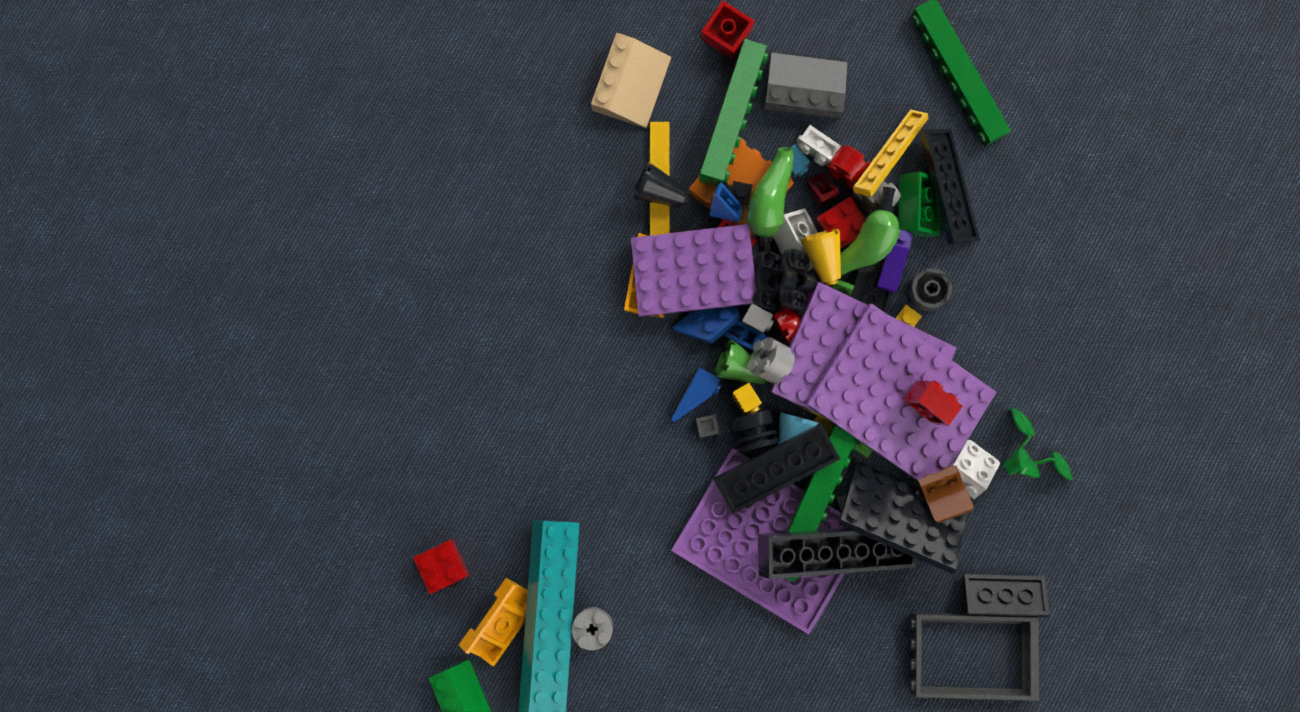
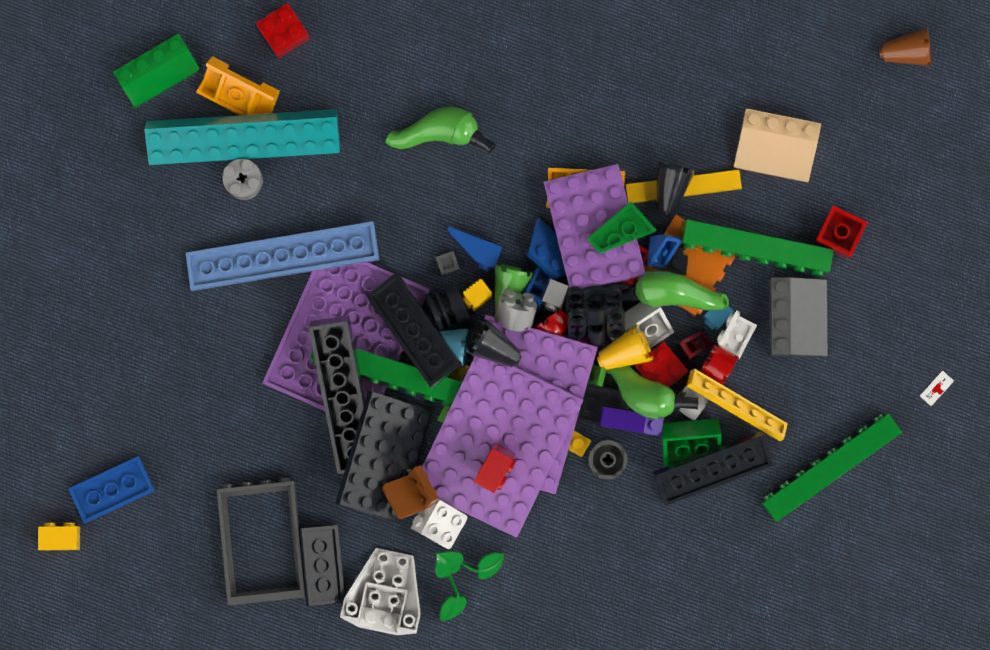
camera: 80 degrees right, 0 degrees up
(564, 413) = (442, 124): none -> bright green animal
(679, 597) = (282, 256): none -> medium blue plate
(701, 241) = (621, 229): none -> green wing
(806, 389) = (493, 346): none -> black cone
(1041, 533) = (384, 595): none -> white wedge

